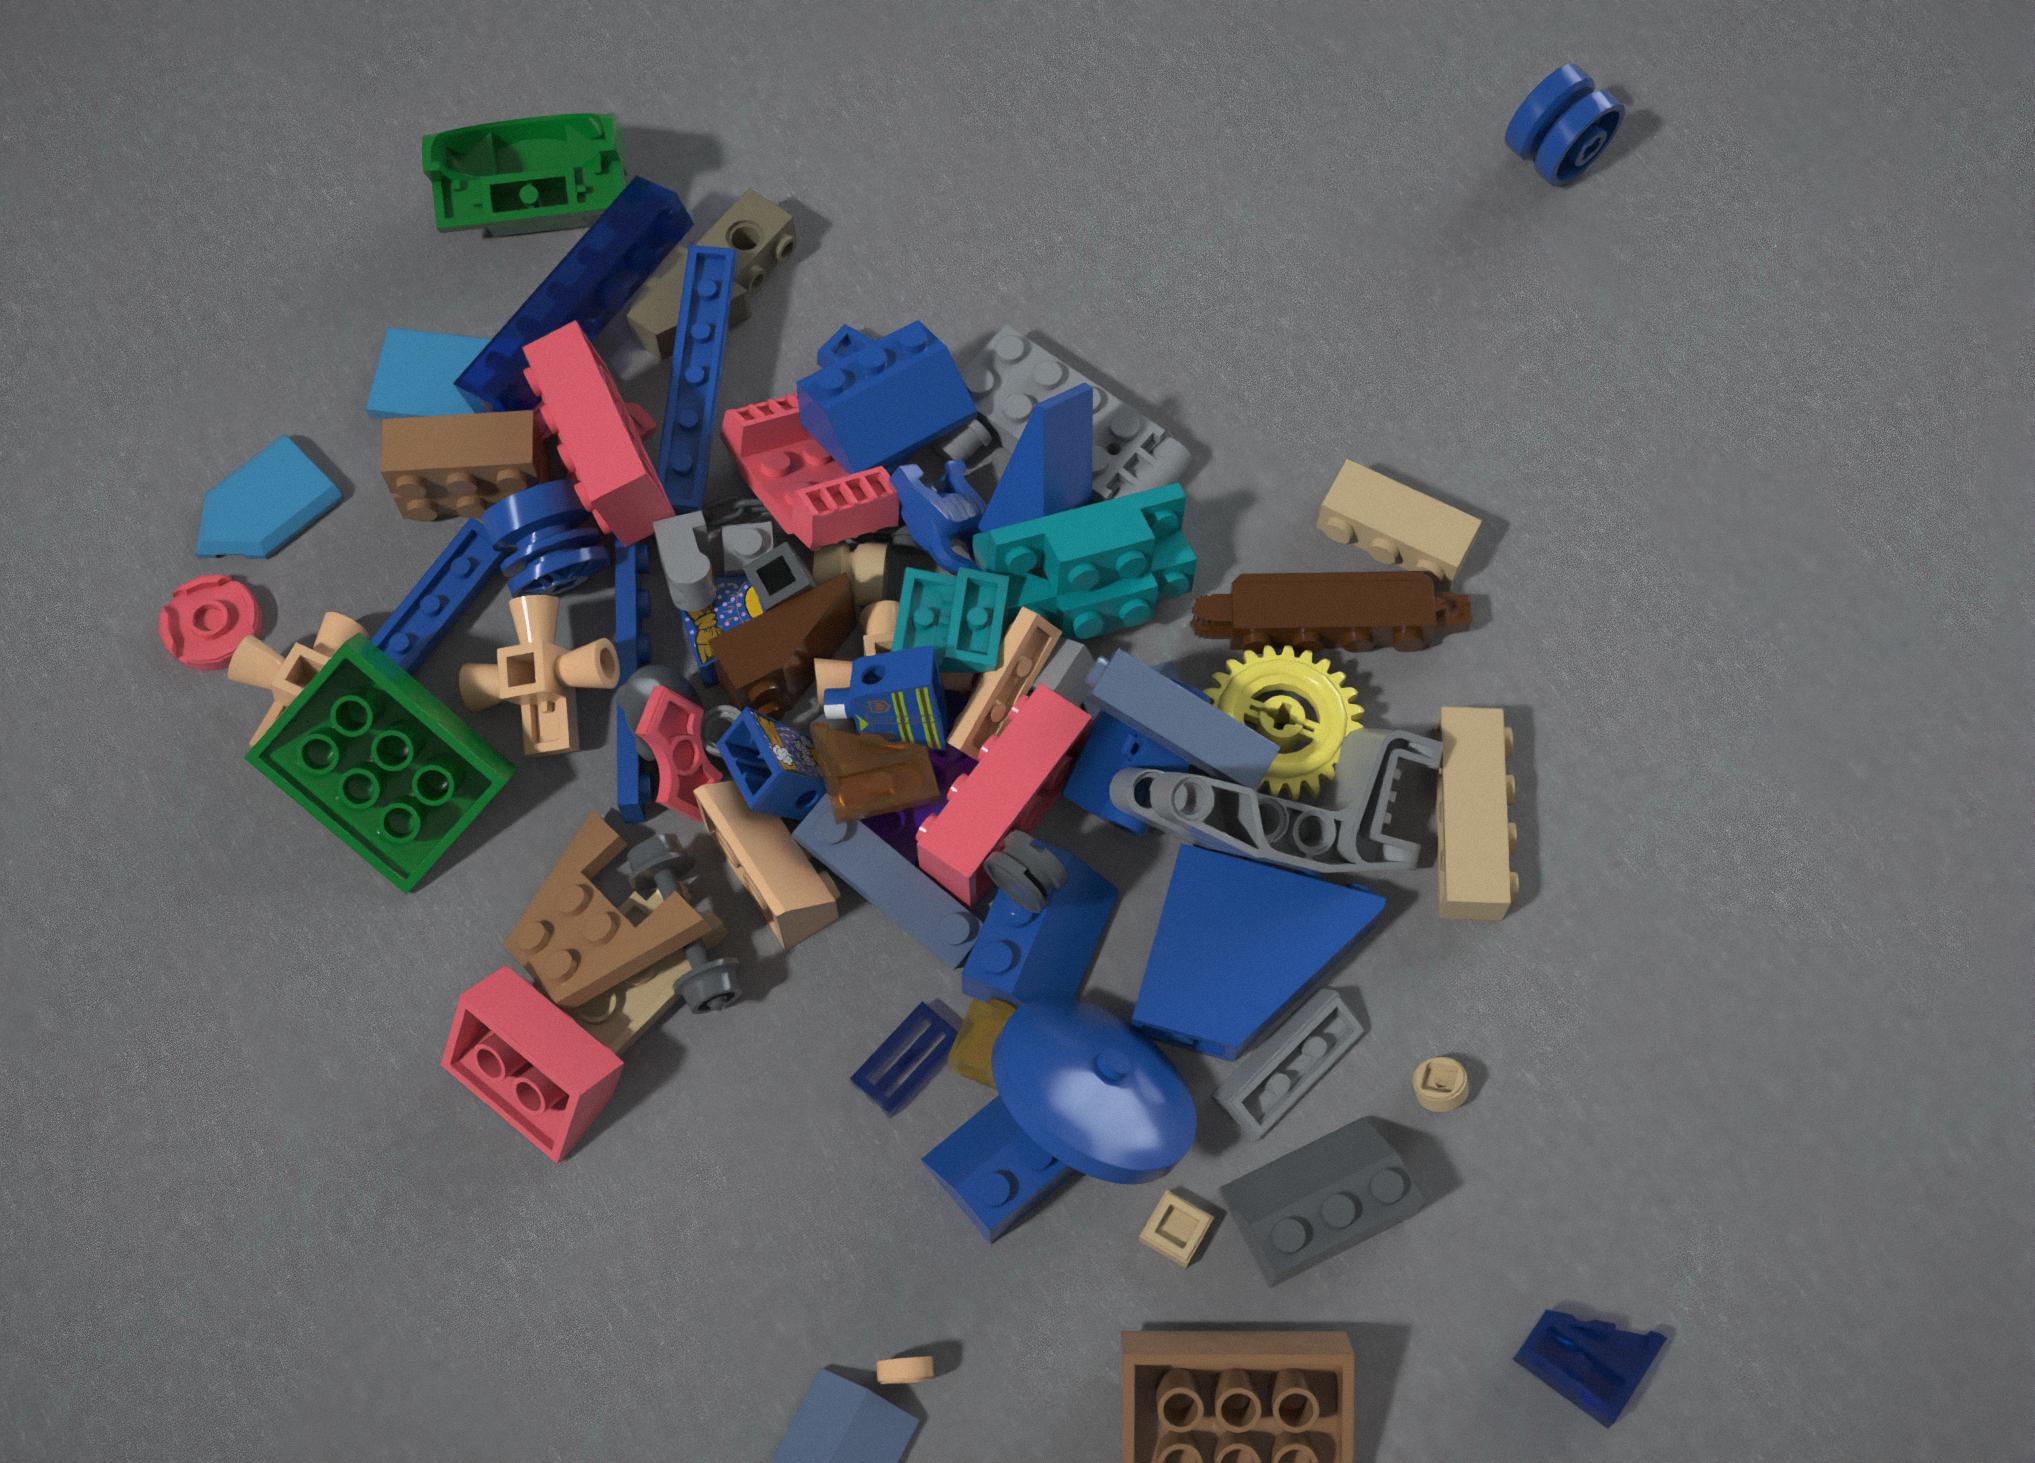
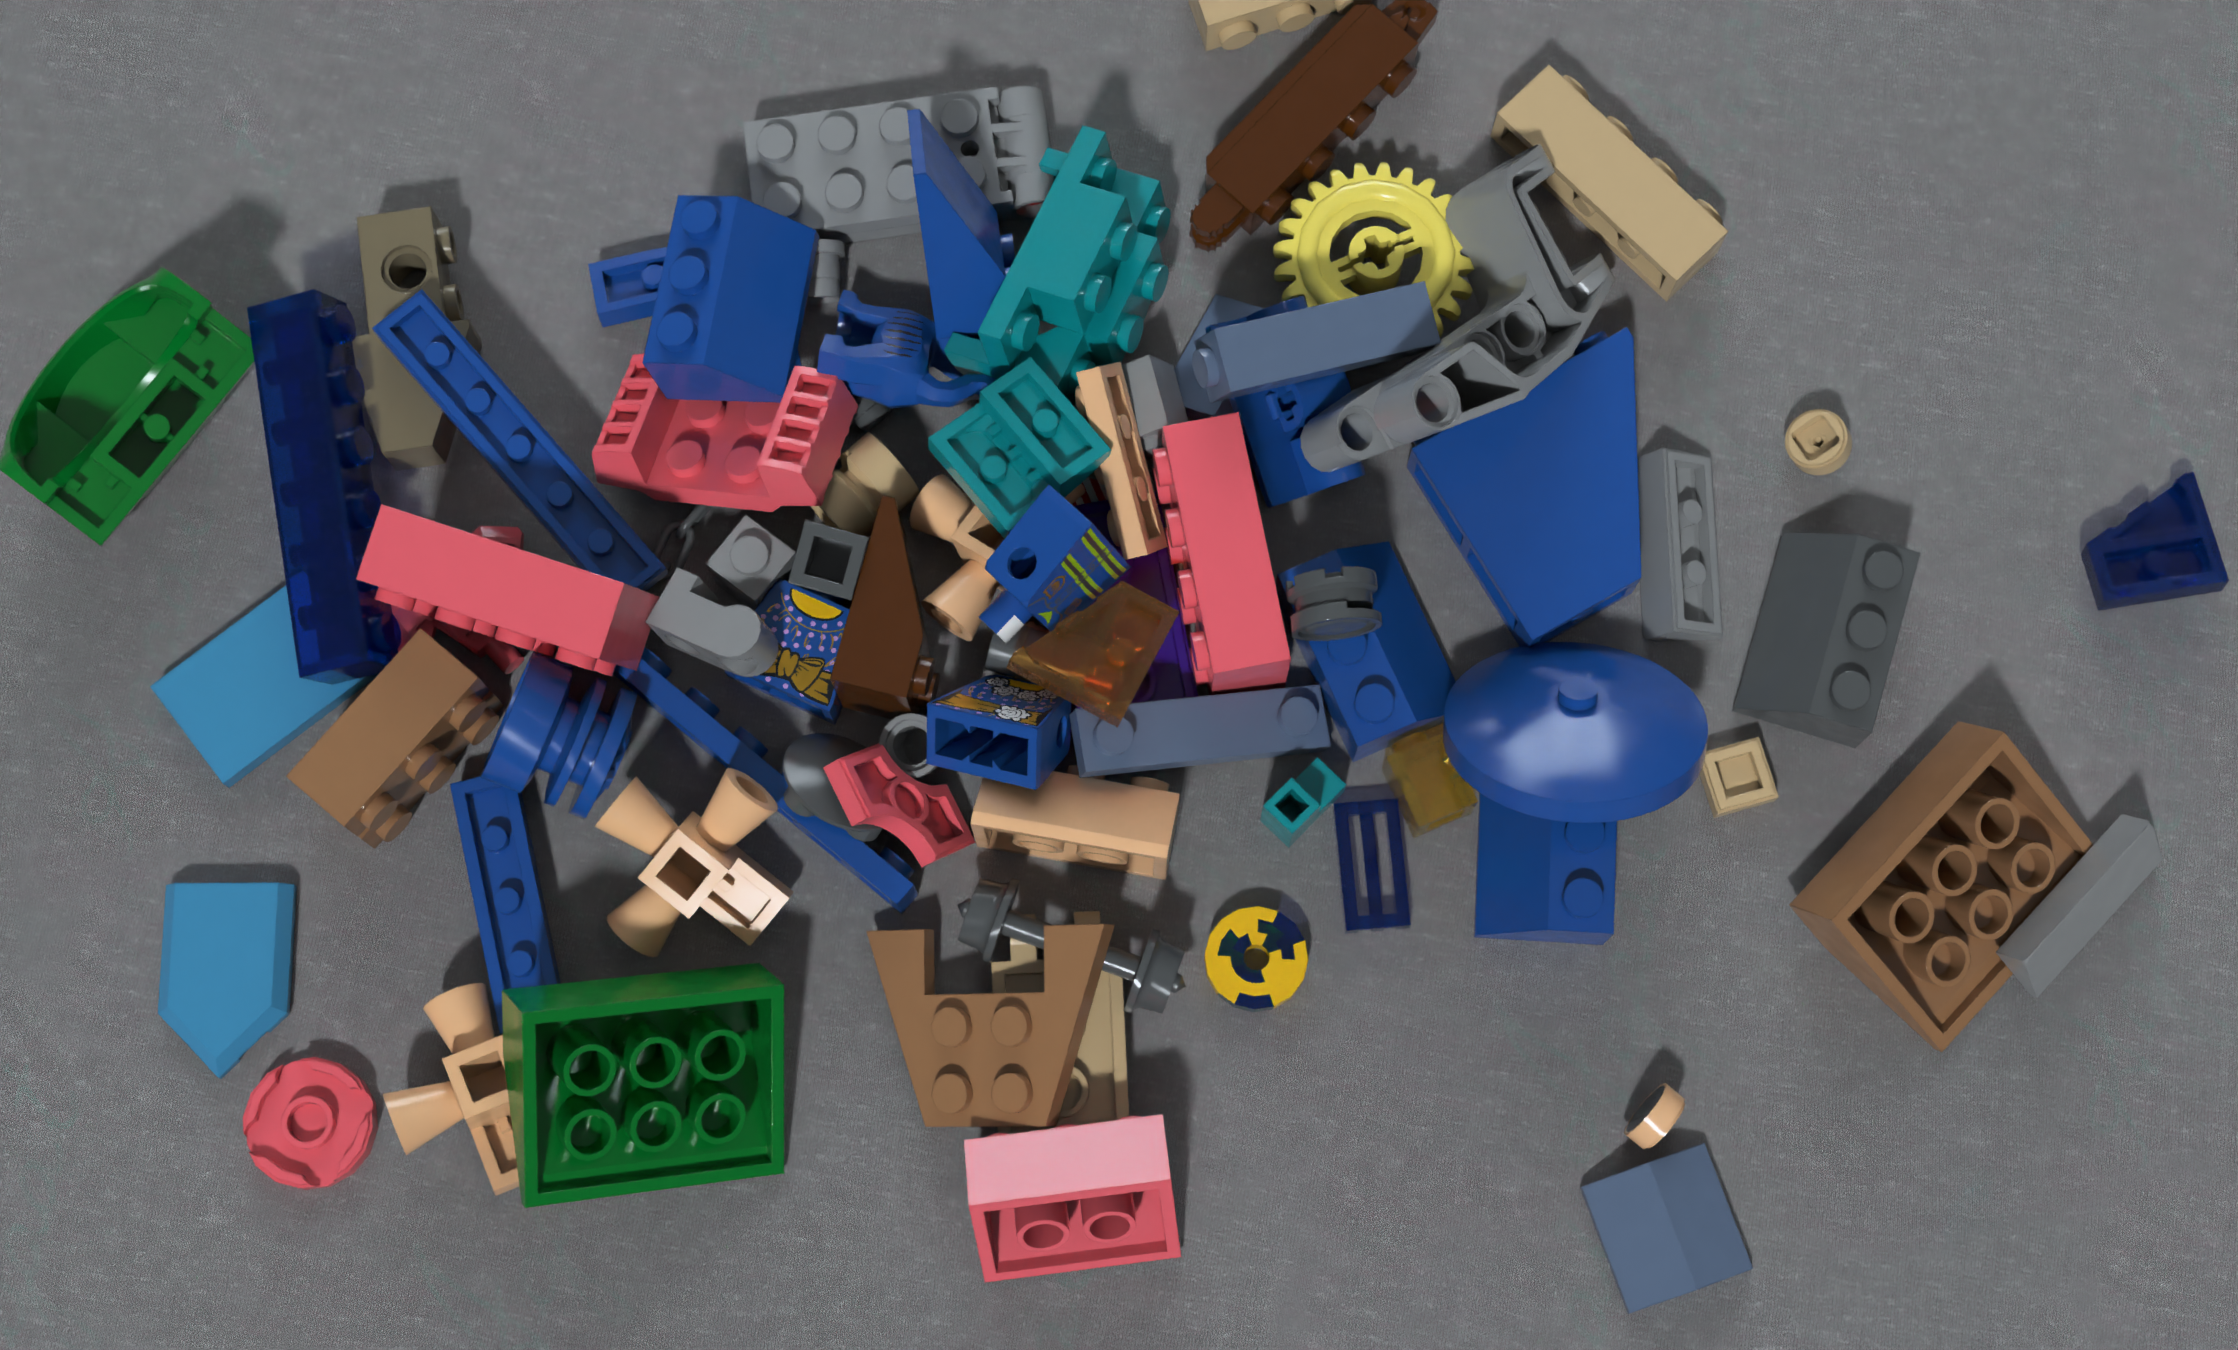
camera: 45 degrees left, 10 degrees up
(788, 1066) = (1263, 930): none -> yellow piece
(902, 981) = (1301, 802): none -> teal piece

